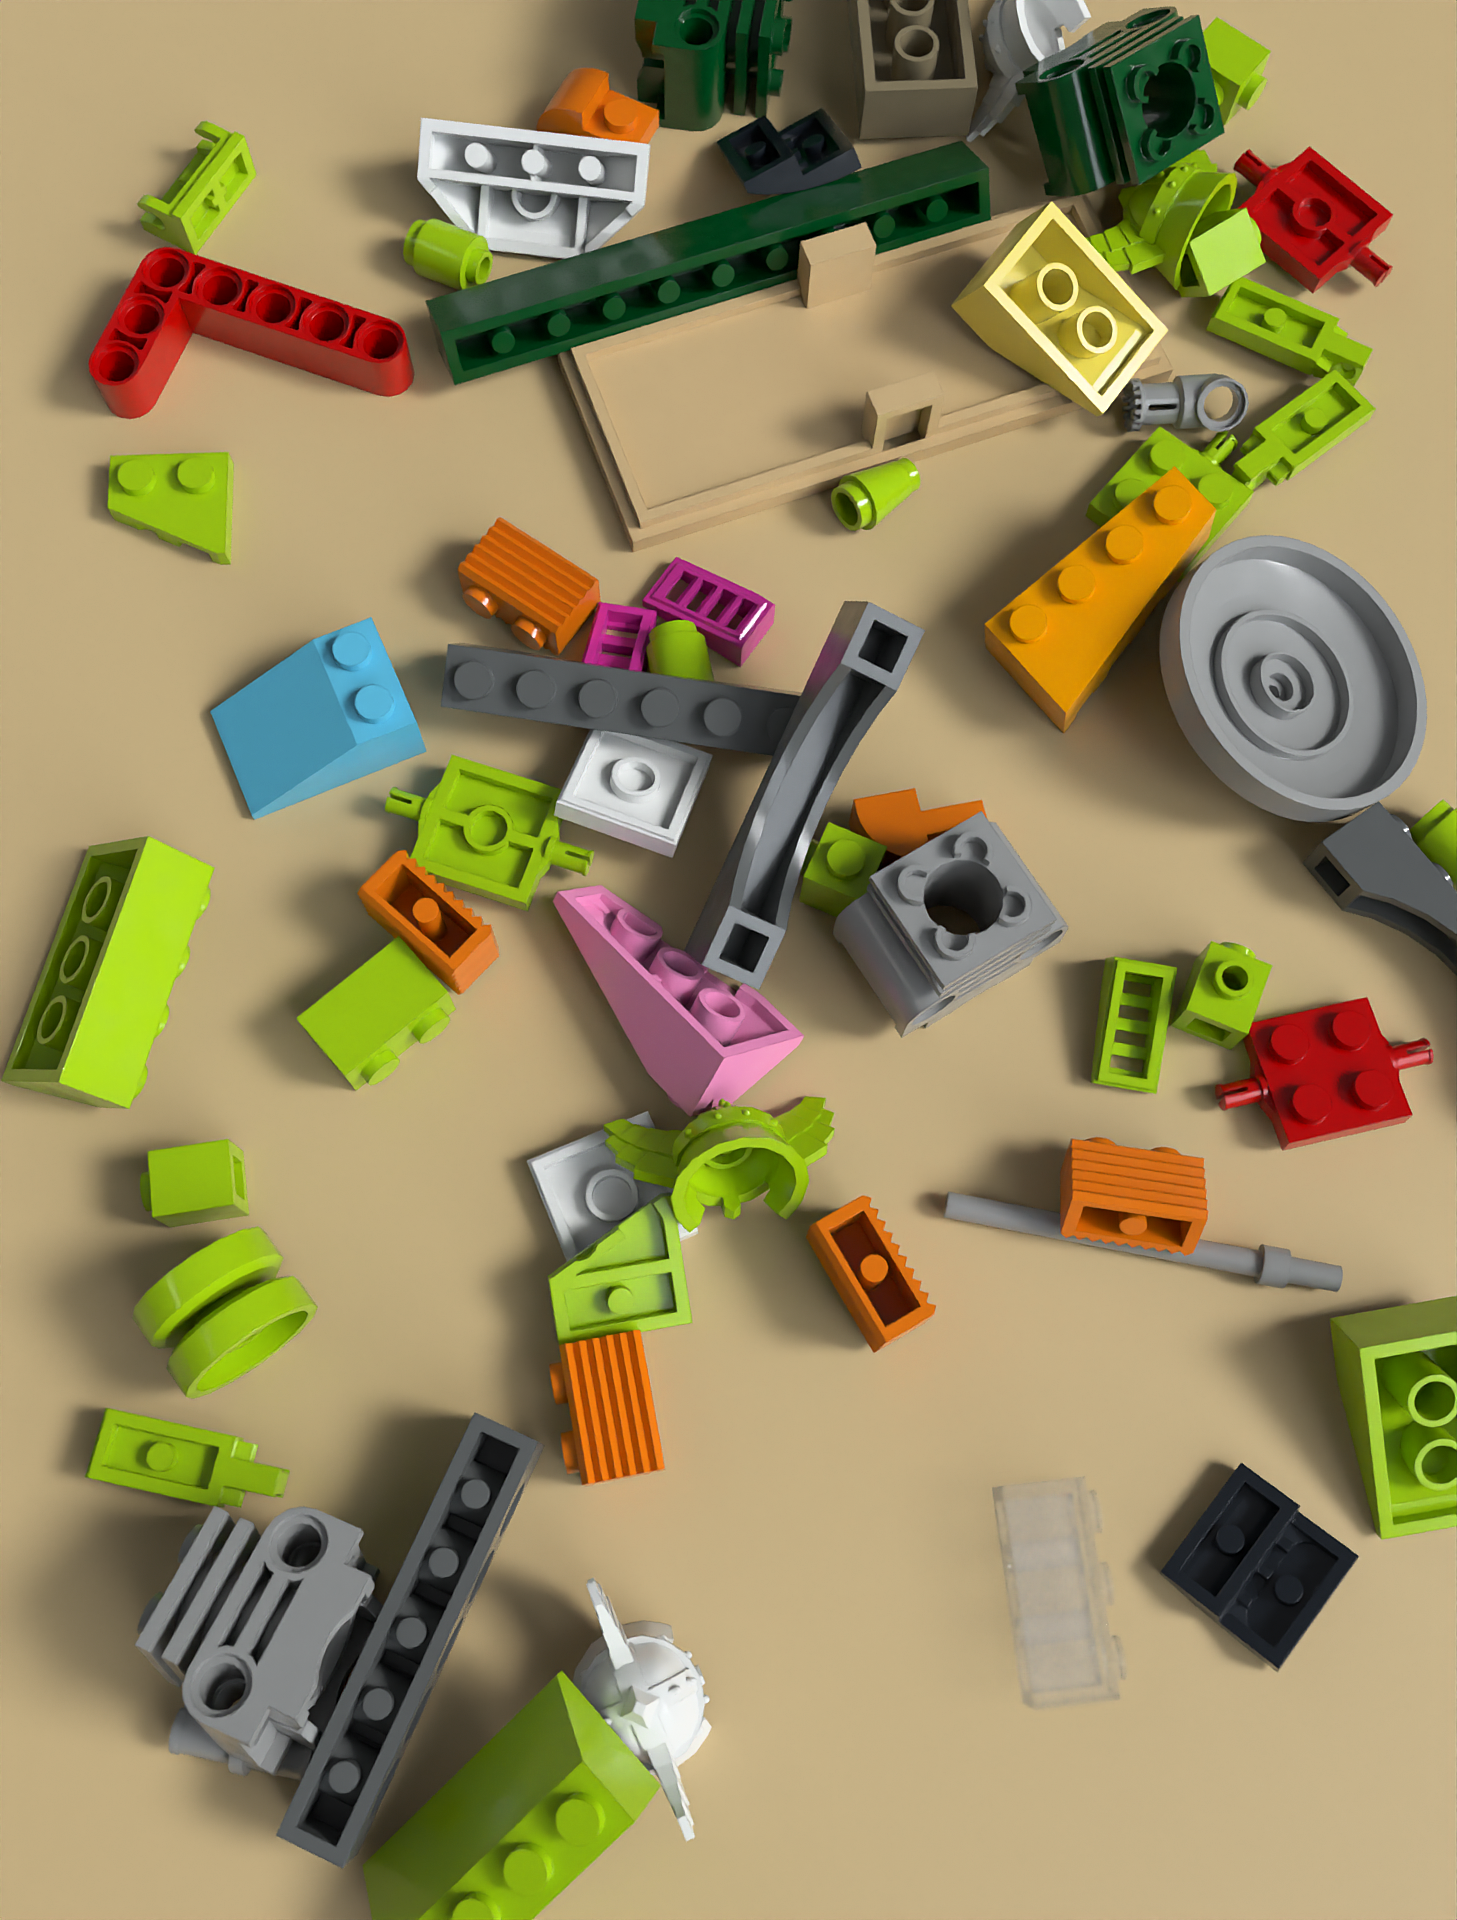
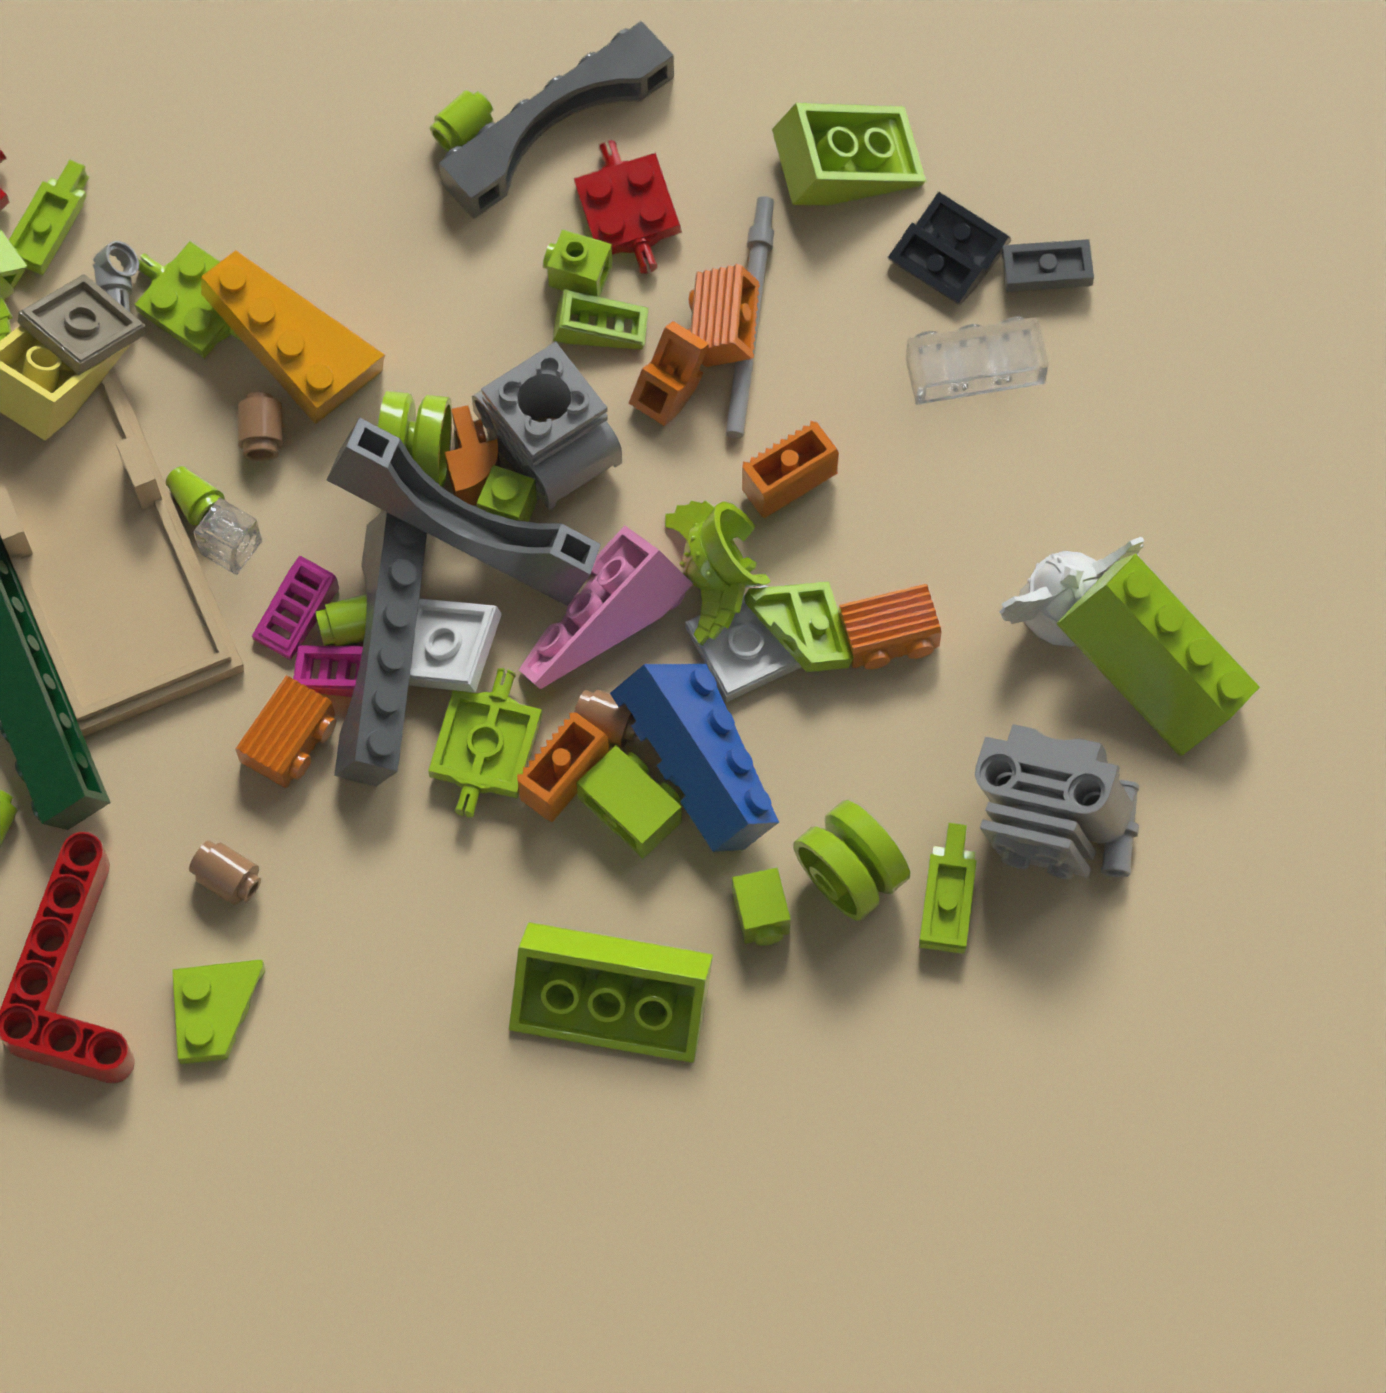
camera: 90 degrees left, 5 degrees down
(318, 720) = (403, 871): medium azure slope -> none
(344, 511) = (225, 872): none -> medium nougat brick
(410, 1642) = (991, 704): dark grey brick -> none
(425, 1109) = (699, 751): none -> blue wedge
(507, 992) = (605, 714): none -> medium nougat brick
(811, 523) = (228, 536): none -> clear brick
(935, 740) = (424, 436): none -> lime wheel
(975, 570) = (260, 426): none -> medium nougat brick
(1032, 1110) = (671, 375): none -> orange brick
(1113, 339) = (81, 324): none -> dark tan tile
(1228, 1731) = (1047, 265): none -> dark grey plate
(1293, 679) = (349, 212): light grey container -> none
(1302, 431) = (136, 210): lime hinge -> none

